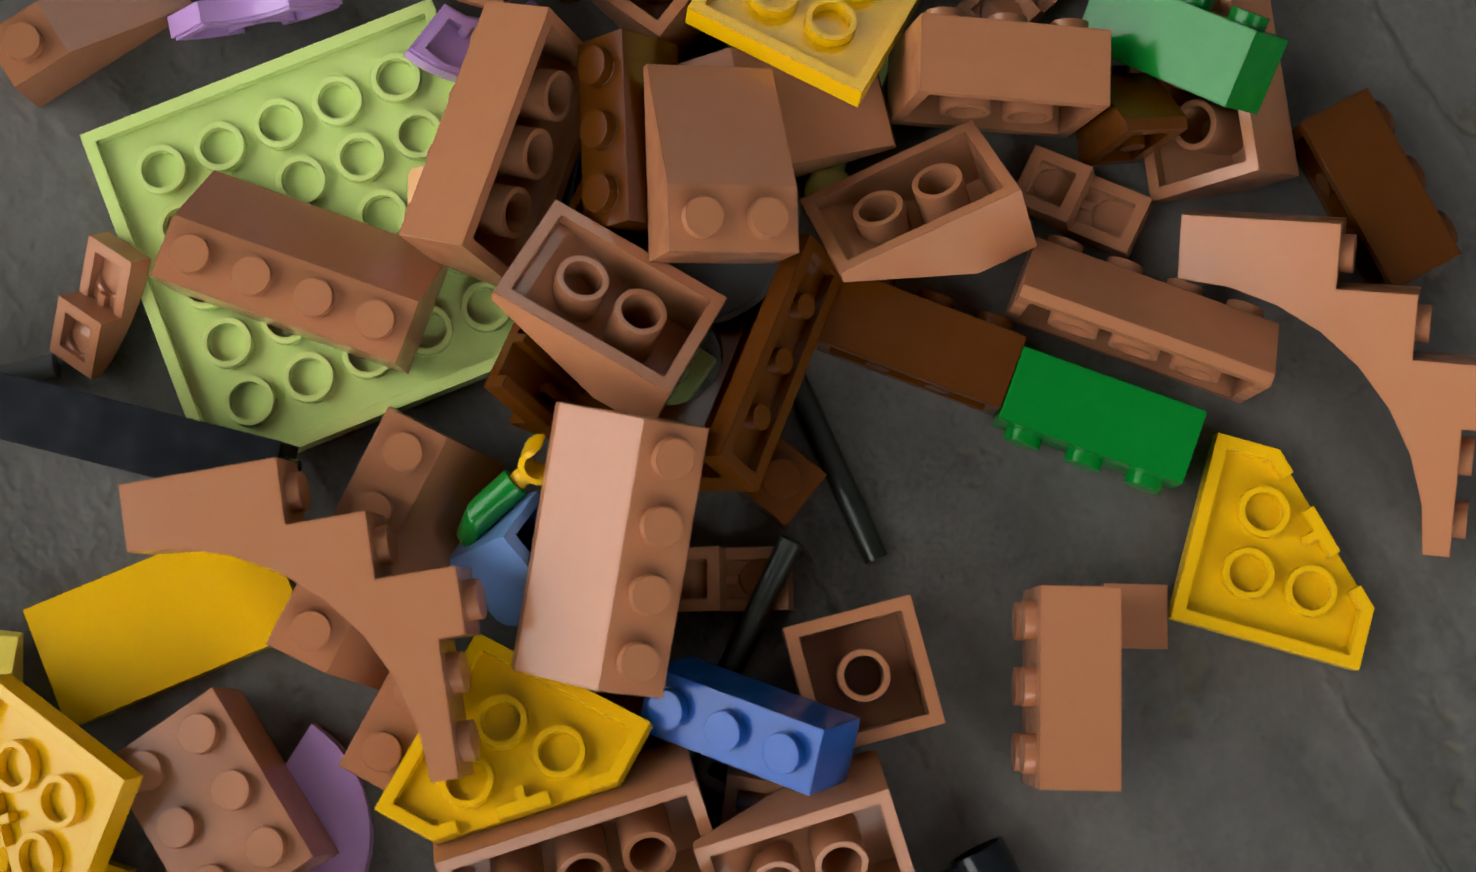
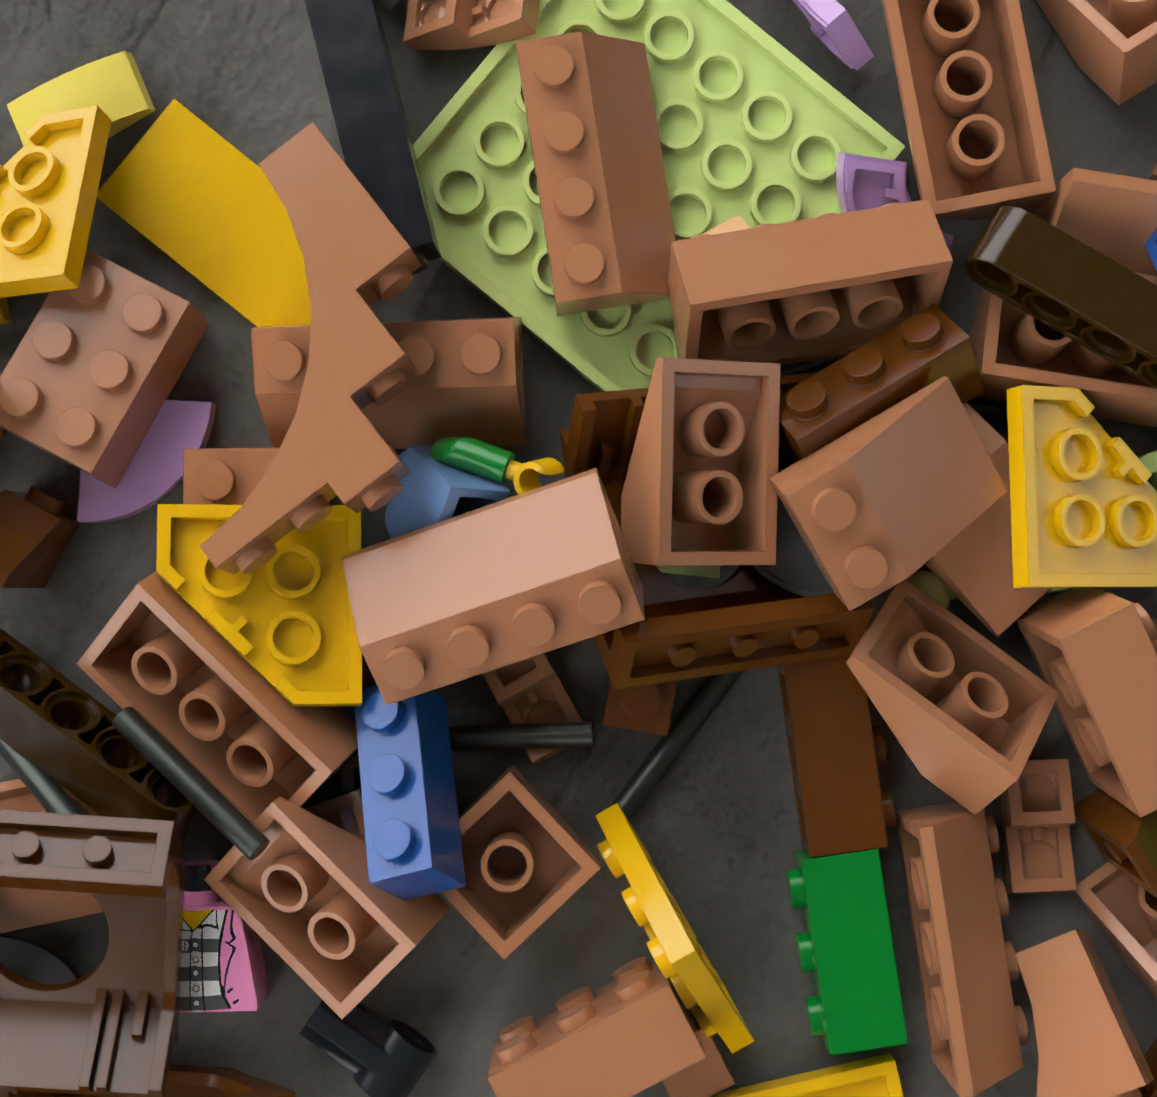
camera: 60 degrees right, 5 degrees up
(1002, 564) = (670, 934): none -> yellow plate

